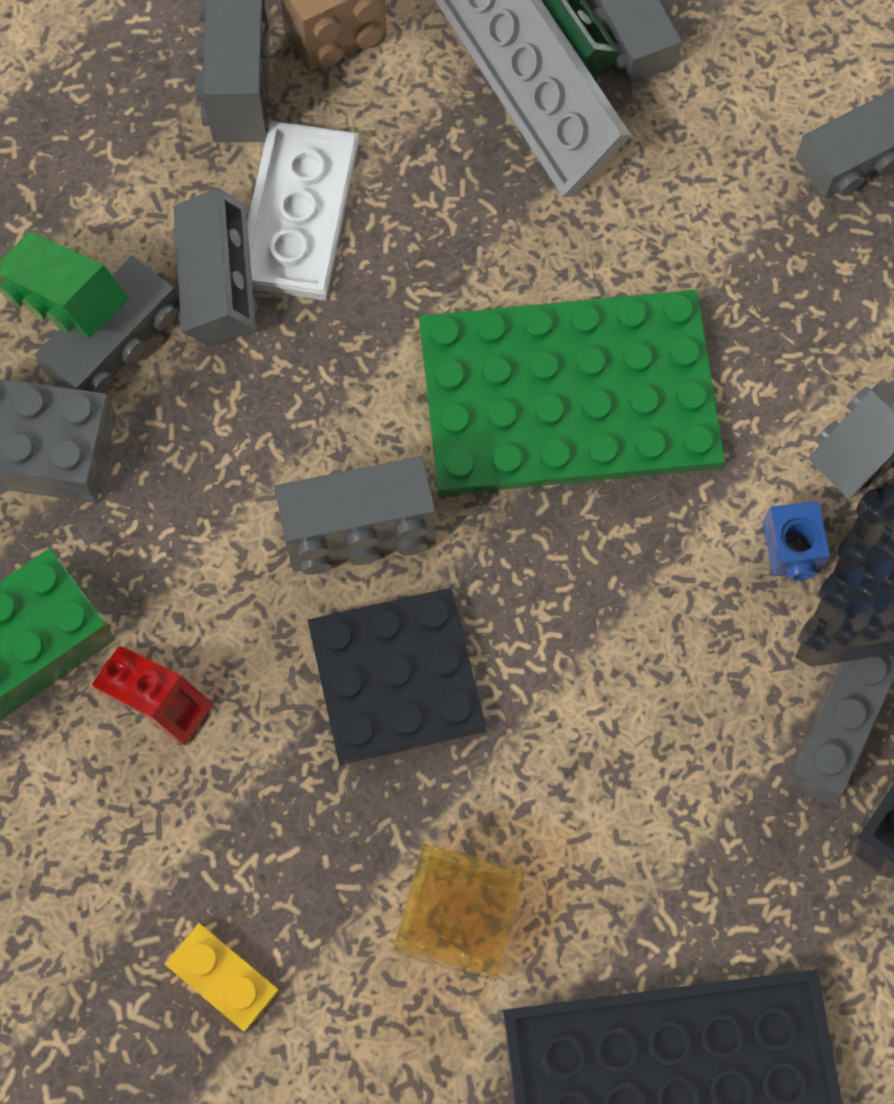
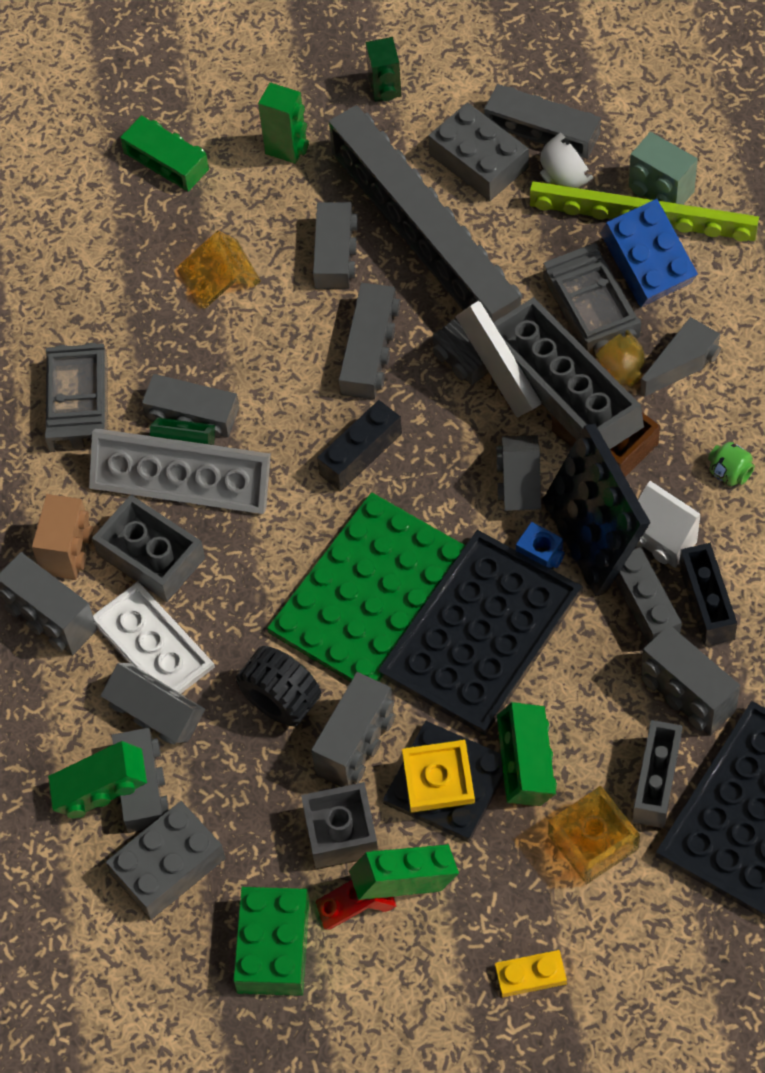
camera: 45 degrees left, 10 degrees down
(215, 720) = (403, 871): none -> green brick
(226, 596) = (339, 824): none -> flat silver brick
(340, 384) = (278, 685): none -> black tyre
(380, 660) = (438, 776): none -> yellow plate
(403, 108) = (149, 548): none -> dark grey brick
(502, 743) = (526, 754): none -> green brick
(610, 928) = (657, 774): none -> dark grey brick
(626, 559) = (480, 632): none -> black plate
(744, 227) = (359, 445): none -> black brick
(770, 868) = (689, 680): none -> dark grey brick

